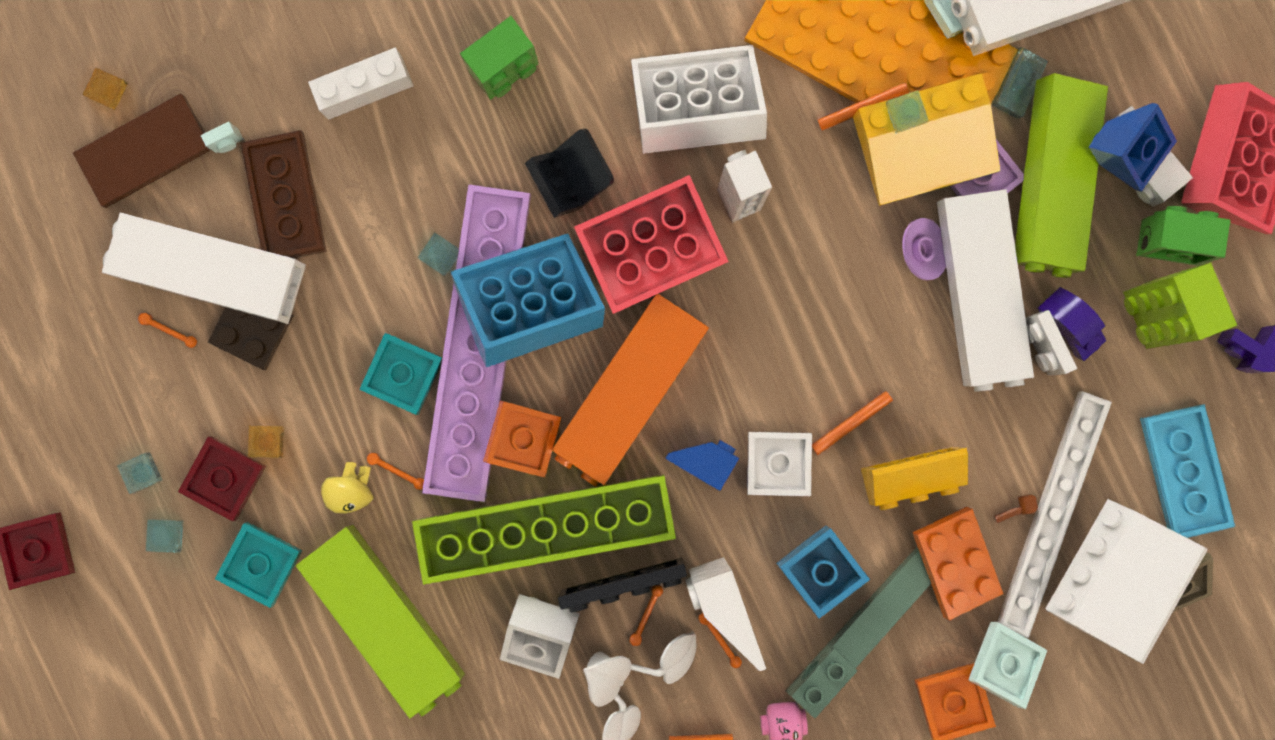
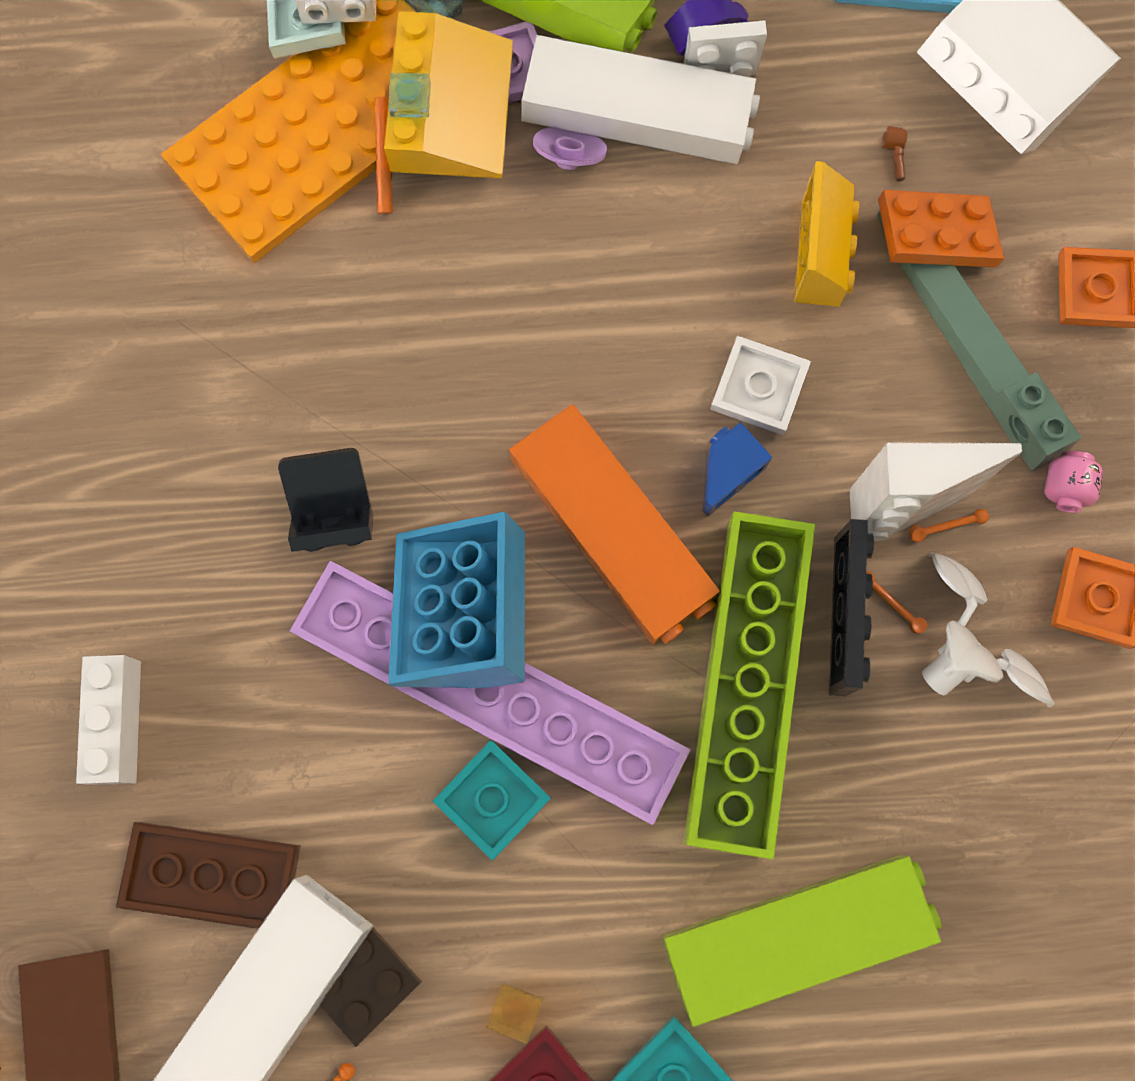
camera: 75 degrees left, 10 degrees down
(222, 138) = (99, 928): light aqua plate -> none
(347, 492) = (619, 922): light yellow piece -> none
(374, 459) = (587, 876): orange hinge -> none
(439, 254) = (360, 700): clear light blue plate -> none
(500, 58) = (152, 534): bright green brick -> none
(522, 439) = (627, 674): orange plate -> none
(538, 636) = (881, 739): white slope -> none
(651, 244) = (448, 438): coral slope -> none
(699, 99) = (300, 330): white slope -> none
(743, 185) = (421, 295): white brick -> none
(823, 571) = (905, 375): dark azure brick -> none
(851, 423) = (738, 291): orange bar -> none
(1008, 665) = (1073, 214): light aqua plate -> none
(1054, 513) = (924, 124): white tile -> none

